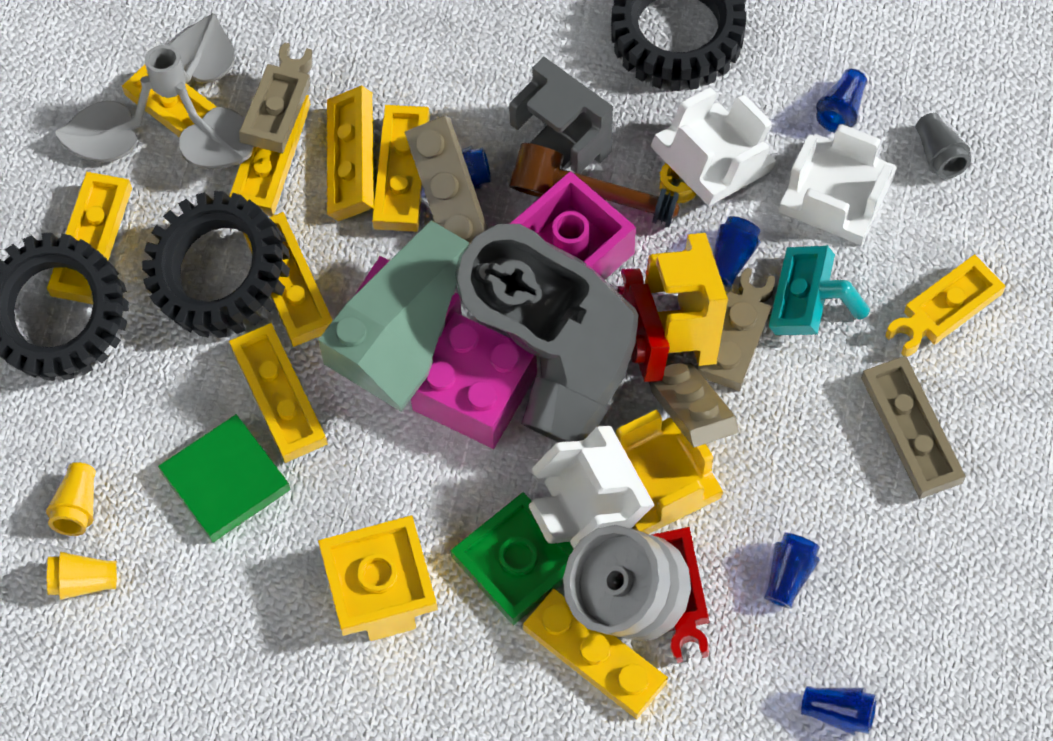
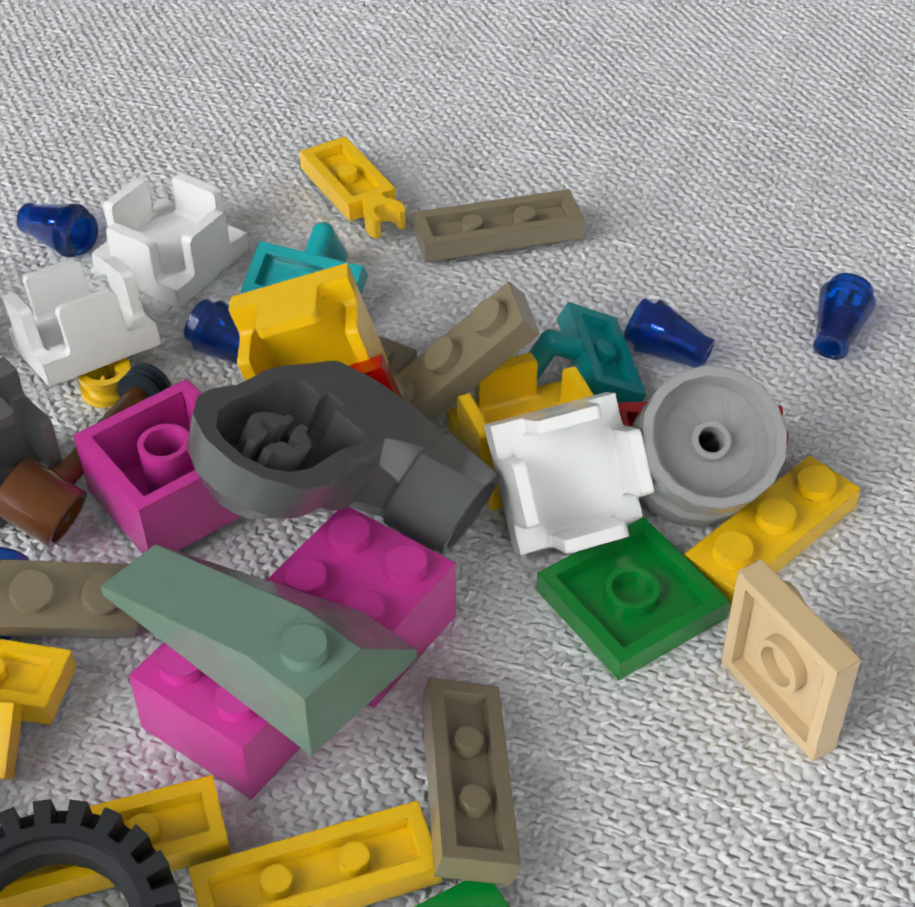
camera: 85 degrees left, 20 degrees down
(345, 463) = (469, 783): none -> dark tan plate
(378, 578) = (675, 741): yellow panel -> none
(448, 636) = (789, 659): none -> tan plate
(751, 513) = (597, 350): none -> teal plate
(943, 148) = (152, 161): dark grey cone -> none

